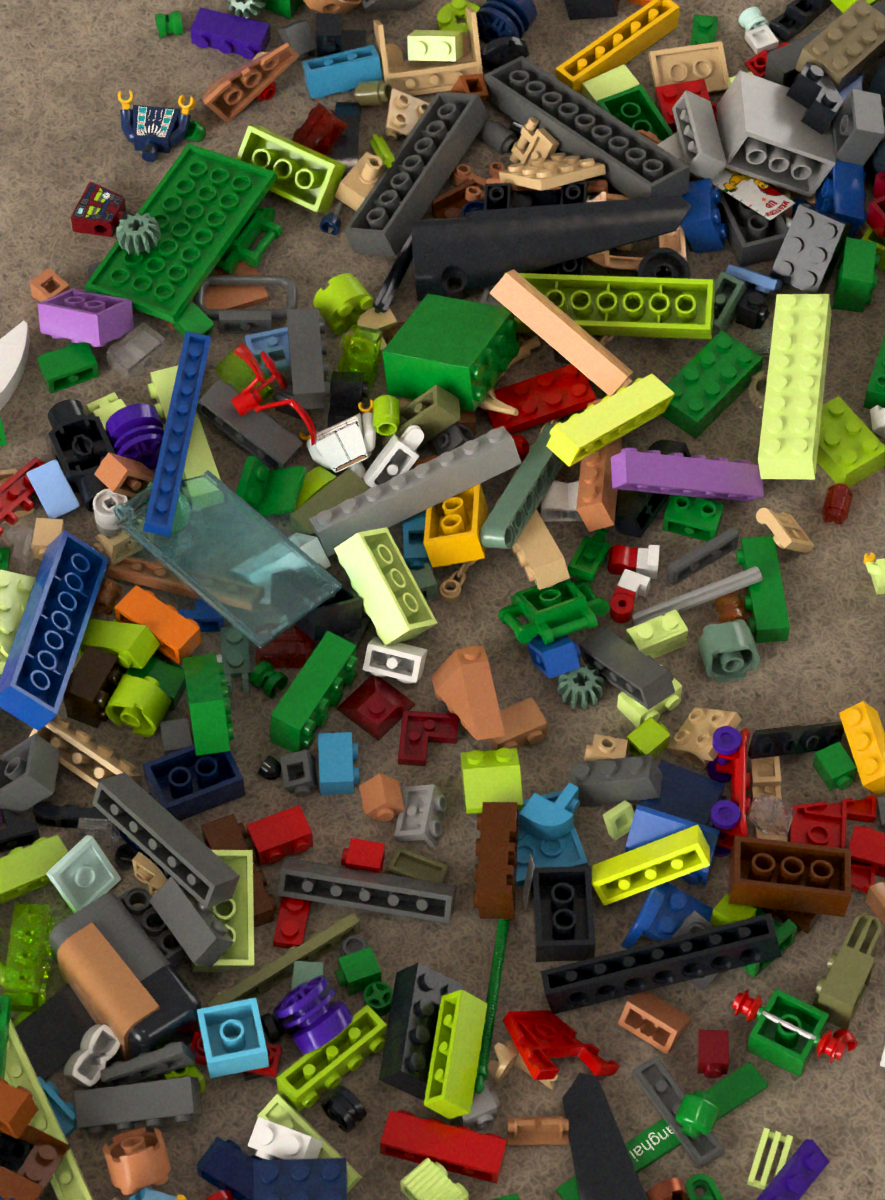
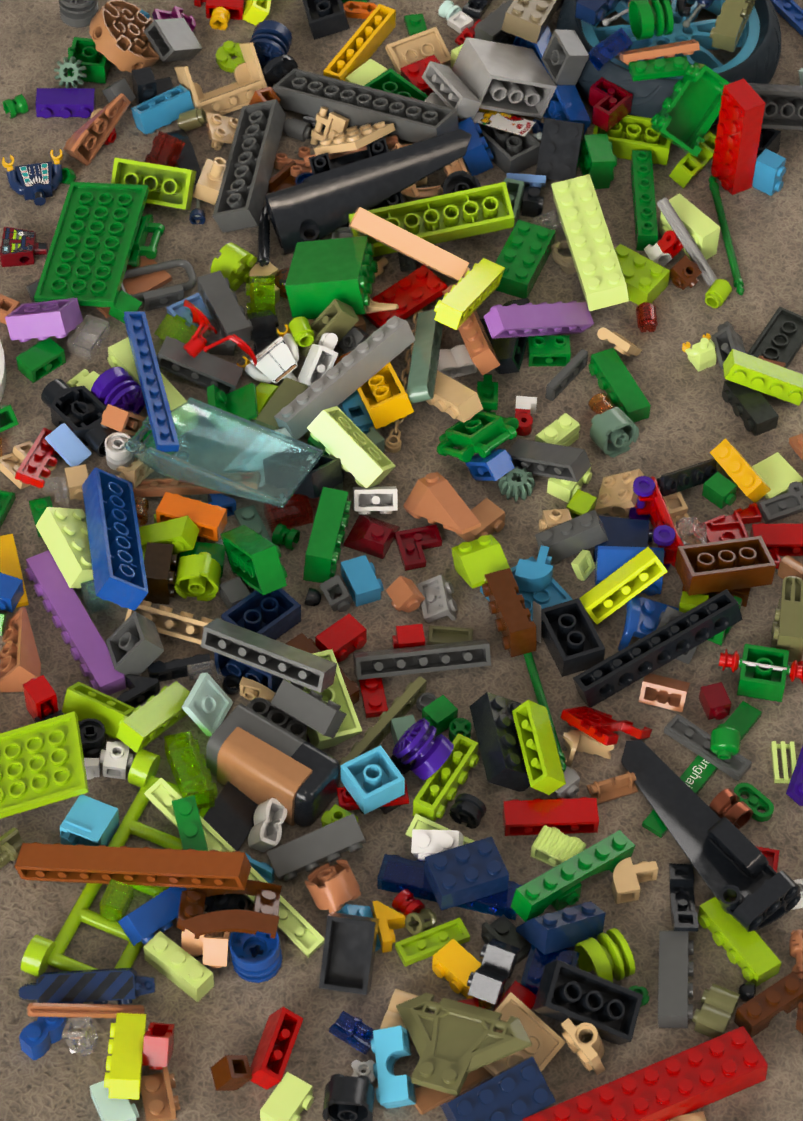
camera: 20 degrees left, 5 degrees down
(138, 233) = (62, 250): sand green gear -> none
(148, 1065) = (315, 817): dark grey plate -> none
(382, 150) = (211, 154): lime axle -> none
(435, 45) = (225, 76): yellowish green brick -> none
(634, 559) = (527, 387): leg -> none
(700, 595) = (578, 400): light grey axle -> none
(818, 94) = (527, 43): black brick -> none

